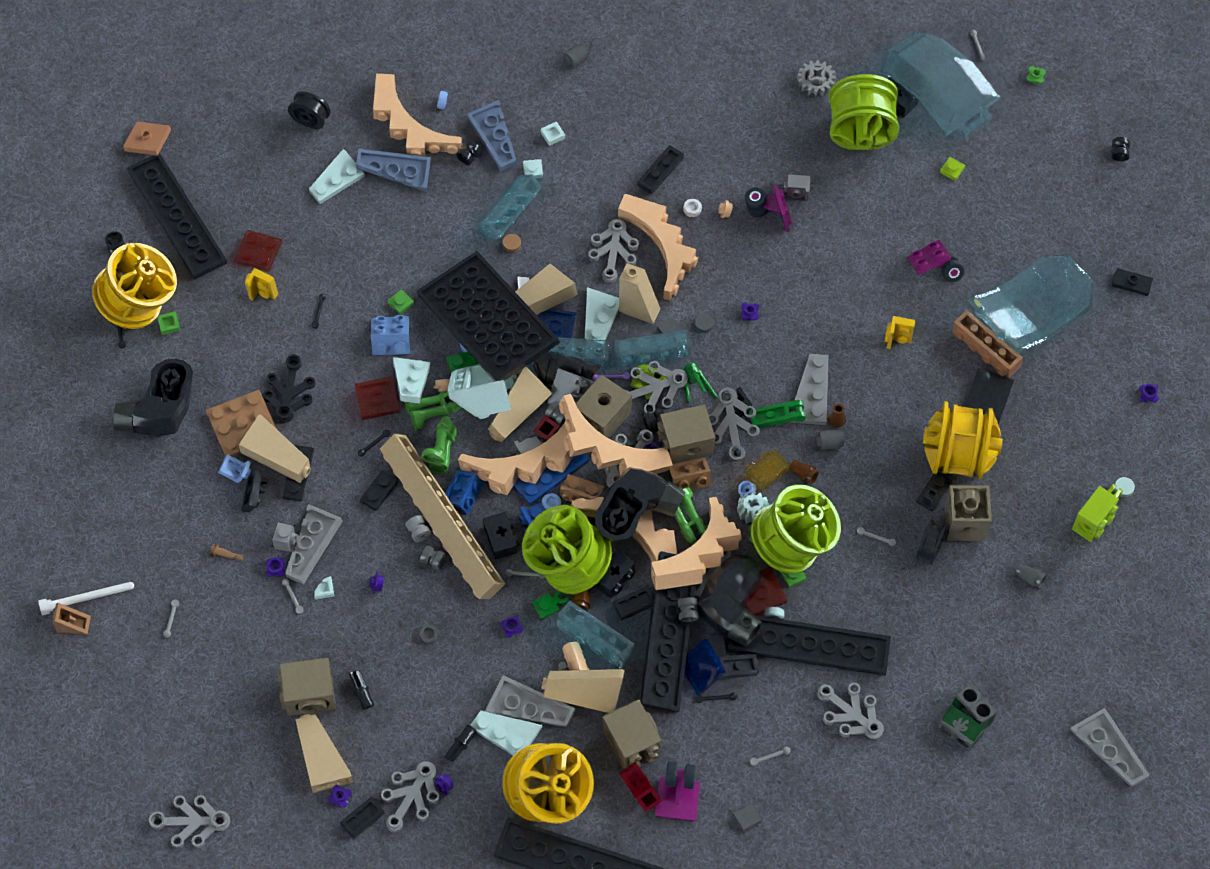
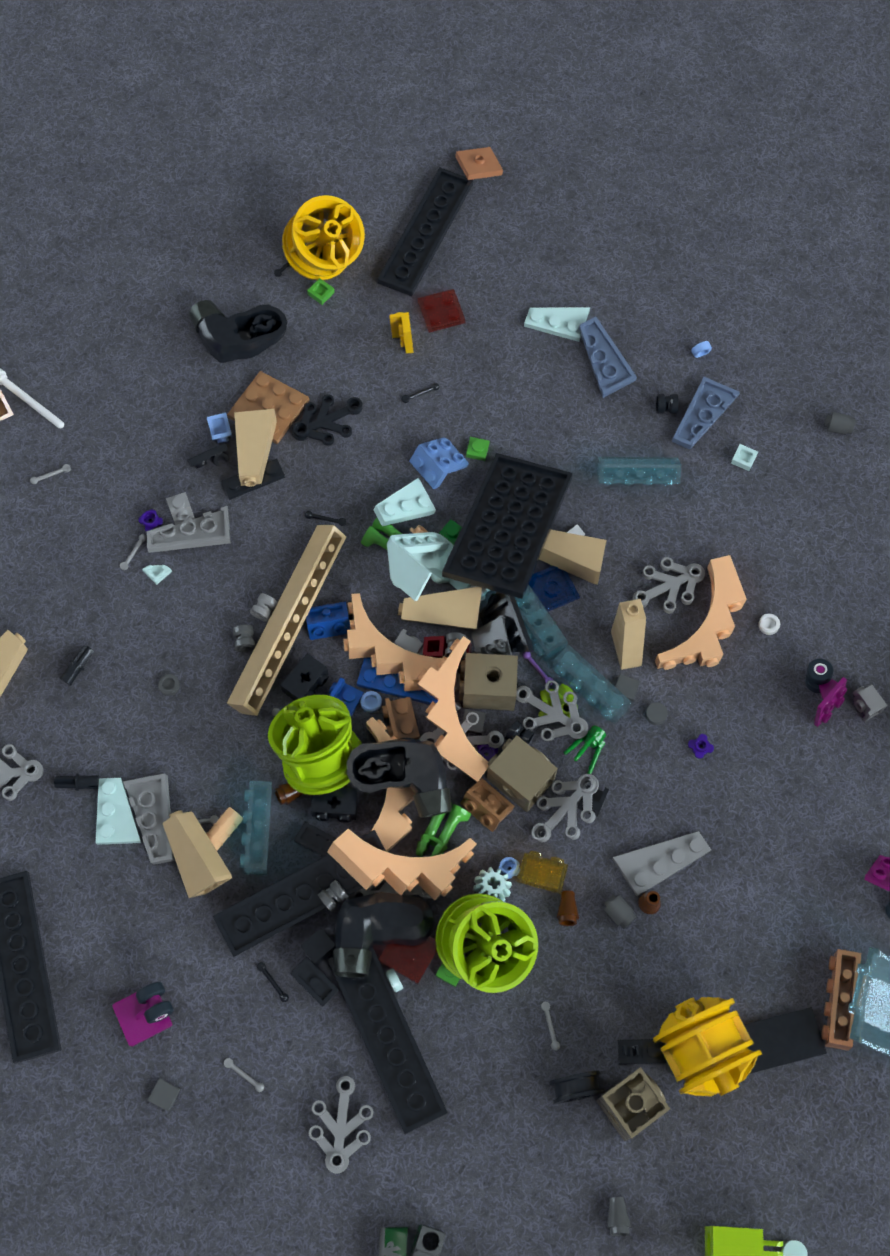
camera: 55 degrees right, 5 degrees up
(113, 241) = (364, 205): black wheel -> none
(224, 553) = (136, 466): medium nougat piece -> none
(306, 687) = (44, 619): dark tan brick -> none
(309, 110) = (600, 255): black wheel -> none
(376, 582) = (188, 608): dark purple plate -> none
(377, 398) = (367, 490): clear red plate -> none
(379, 490) = (281, 552): black plate -> none
(402, 125) = (646, 355): light nougat arch -> none
(439, 455) = (349, 576): bright green piece -> none
(444, 783) = (27, 793): dark purple plate -> none
(509, 632) = (223, 743): dark purple plate -> none
(511, 243) = (607, 497): medium nougat tile -> none
(528, 781) = (47, 905): yellow wheel -> none
(533, 167) = (695, 465): light aqua plate -> none
(548, 605) = (265, 766): green plate -> none
(600, 314) = (590, 618): light aqua wing -> none
(632, 734) = (172, 930): dark tan brick -> none
(640, 786) = (128, 975): dark red brick -> none
(660, 169) = (784, 570): black plate -> none
(703, 667) = (289, 949): clear blue tile -> none
(725, 209) = (790, 653): light nougat plate -> none
(779, 414) = (609, 844): green plate -> none
(900, 330) = (790, 903): yellow bracket -> none

